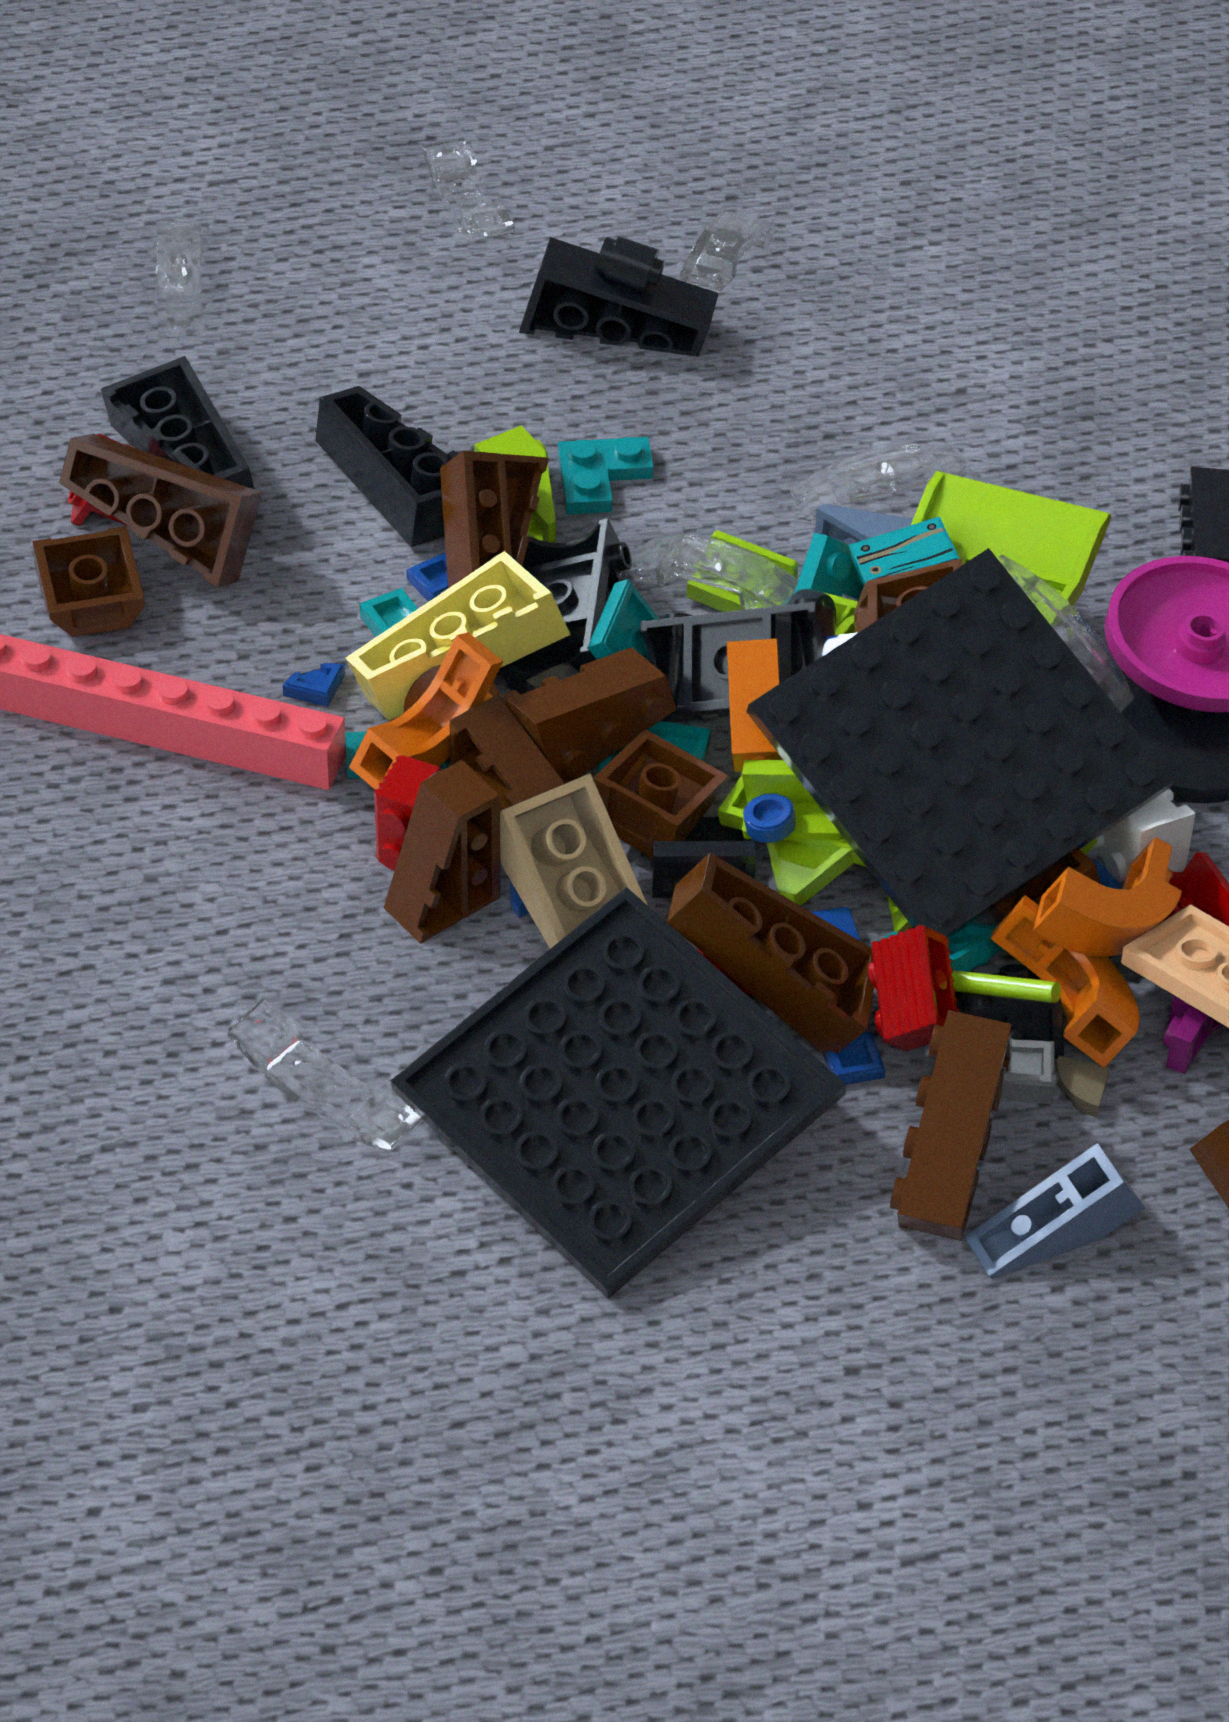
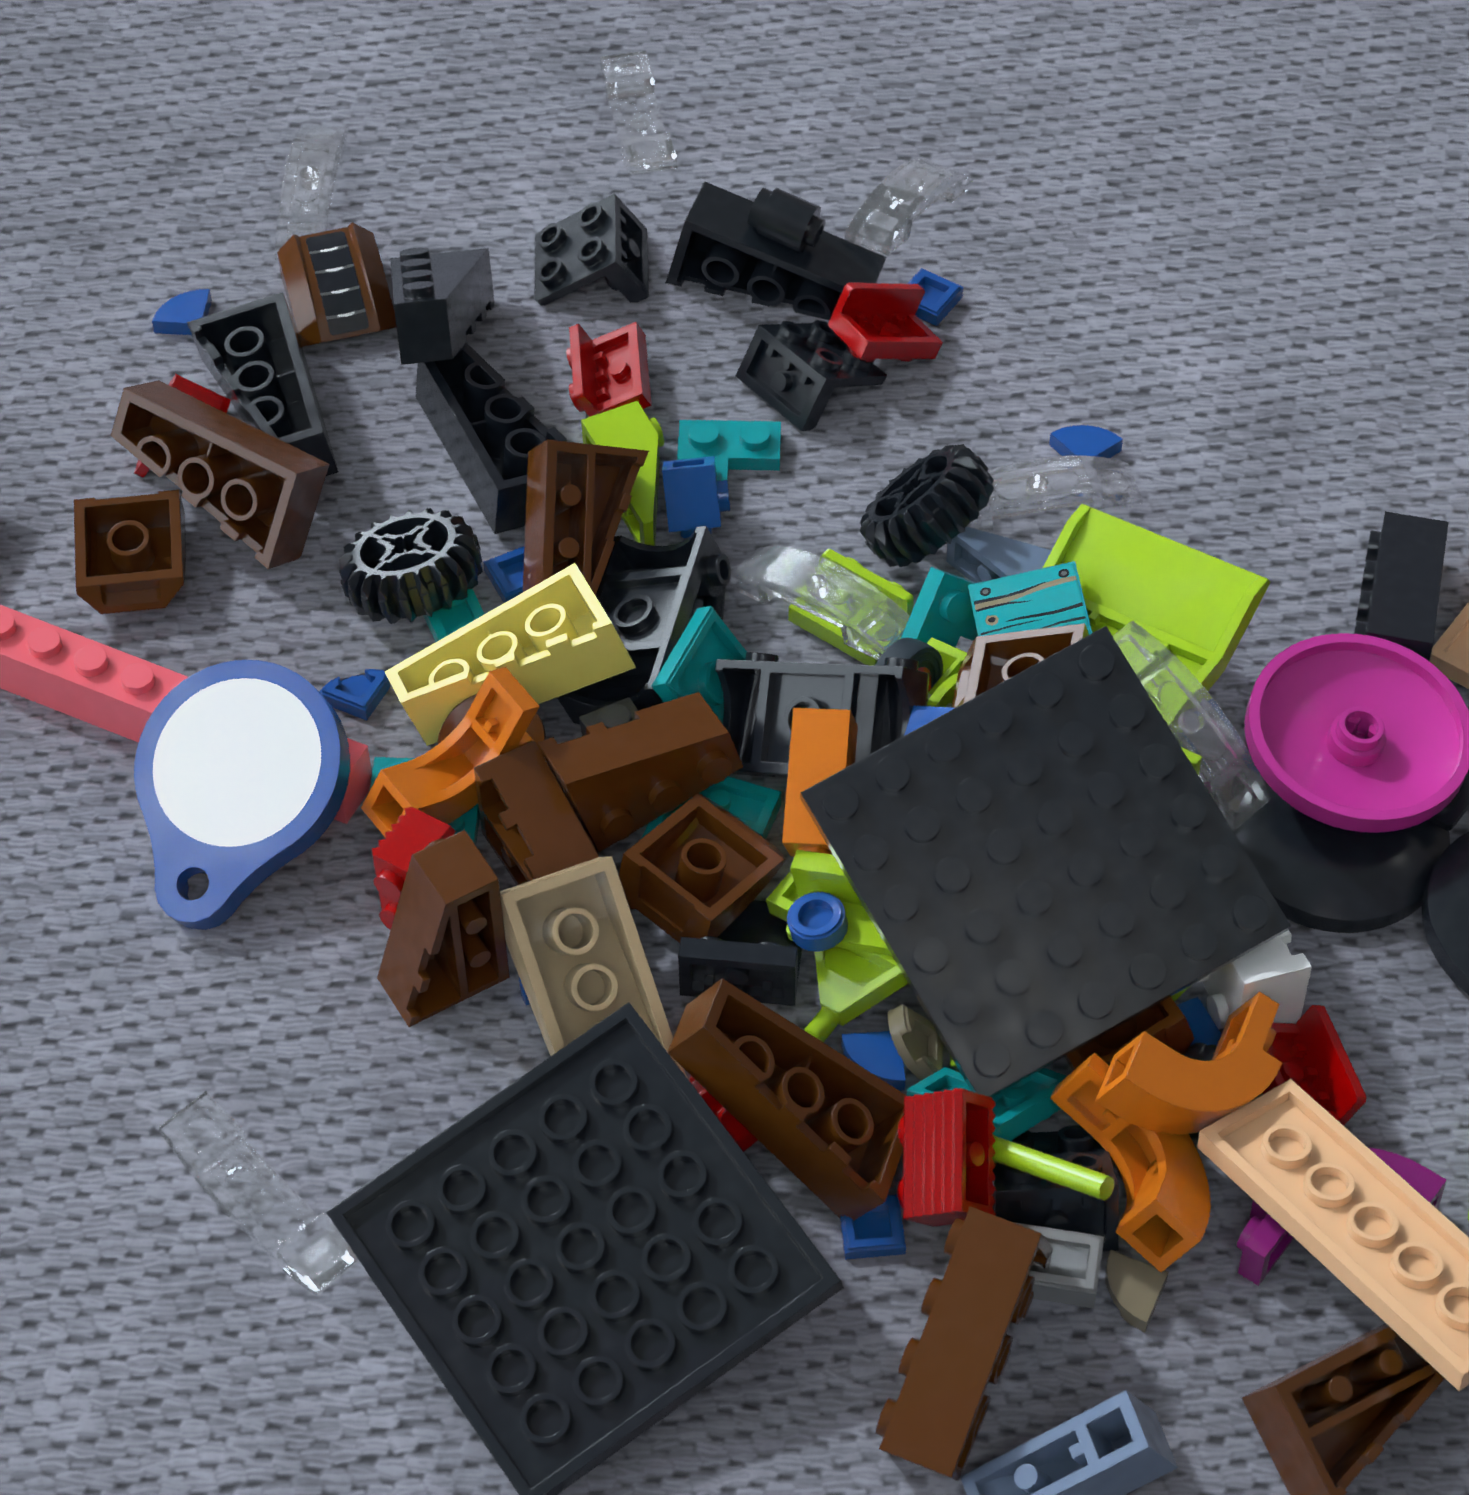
camera: 10 degrees right, 5 degrees up
(85, 387) = (176, 312): none -> blue tile
(224, 349) = (335, 284): none -> reddish brown slope
(236, 753) = (236, 782): none -> piece
(322, 354) = (439, 301): none -> black wedge
(346, 574) = (410, 565): none -> black gear
(446, 304) = (589, 245): none -> black bracket
(486, 403) = (608, 369): none -> red bracket
(586, 498) = (694, 495): none -> blue brick
(659, 392) = (799, 368): none -> black bracket
(723, 348) = (882, 322): none -> red bracket
(758, 327) = (939, 296): none -> blue tile
(795, 490) = (927, 505): none -> black gear
(864, 911) = (916, 1041): none -> dark tan tile
(919, 432) = (1085, 441): none -> blue tile

